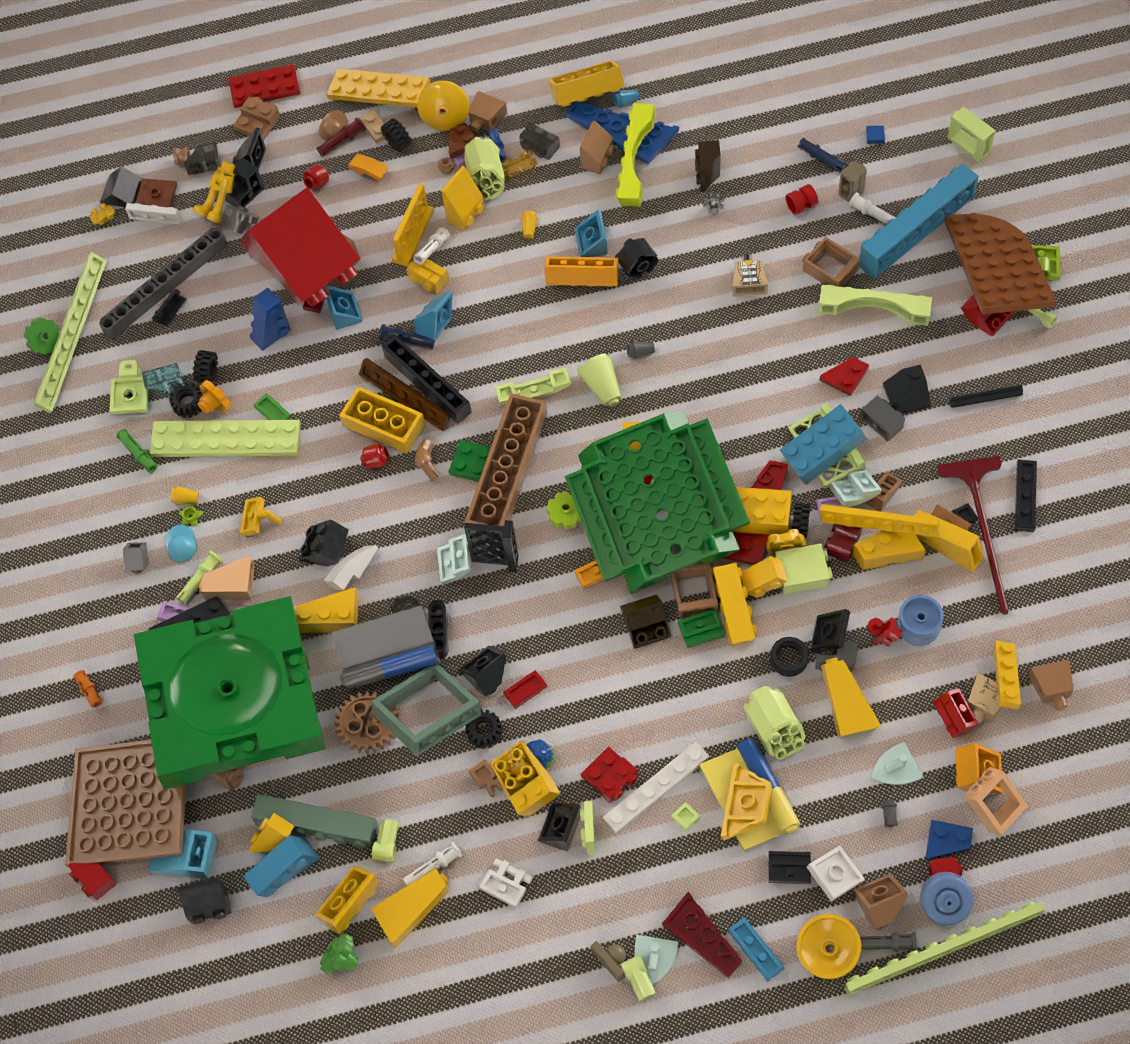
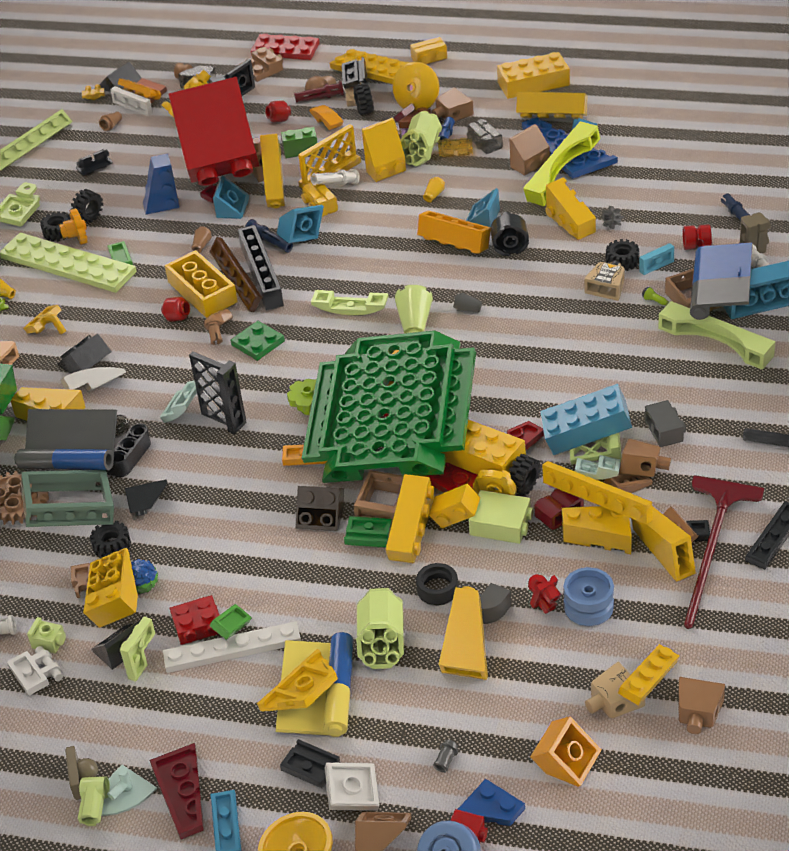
camera: 25 degrees right, 20 degrees down
(147, 247) = (108, 121): none -> medium nougat cone
(156, 197) = (140, 89): none -> light orange plate
(162, 282) = (114, 142): dark grey beam -> none
(163, 378) = (47, 203): clear light blue slope -> none
(342, 364) = (201, 238): none -> medium nougat cone
(362, 209) = (298, 140): none -> bright green slope
(368, 105) = (354, 73): none -> plate
(372, 264) = (272, 170): none -> yellow slope
(419, 47) = (429, 51): none -> yellow brick
(443, 136) = (404, 112): none -> tile
(491, 853) = (47, 635): none -> yellowish green brick
(507, 461) = (288, 344): medium nougat brick -> none
(525, 689) = (172, 524): red tile -> none
(541, 47) = (533, 74): none -> yellow brick
(645, 767) = (230, 621): none -> bright green tile
(673, 210) = (568, 211): none -> yellow wedge
(685, 816) = (242, 682): yellowish green tile -> none
(707, 163) = (623, 186): dark brown slope -> none
(745, 233) = (624, 252): none -> black tyre
(781, 232) = (656, 259): none -> medium azure plate
(792, 278) = (649, 294): none -> lime piece
(830, 631) = (491, 572): black plate -> none
(846, 375) = (652, 382): red wing -> none
(859, 248) = (720, 277): none -> door
(887, 464) = (642, 459): none -> medium nougat torso
(897, 767) = (483, 720): light aqua shield -> none
(908, 390) = (706, 409): black slope -> none
(955, 713) = (572, 689): red brick -> none
(1008, 811) = (566, 805): light nougat window -> none

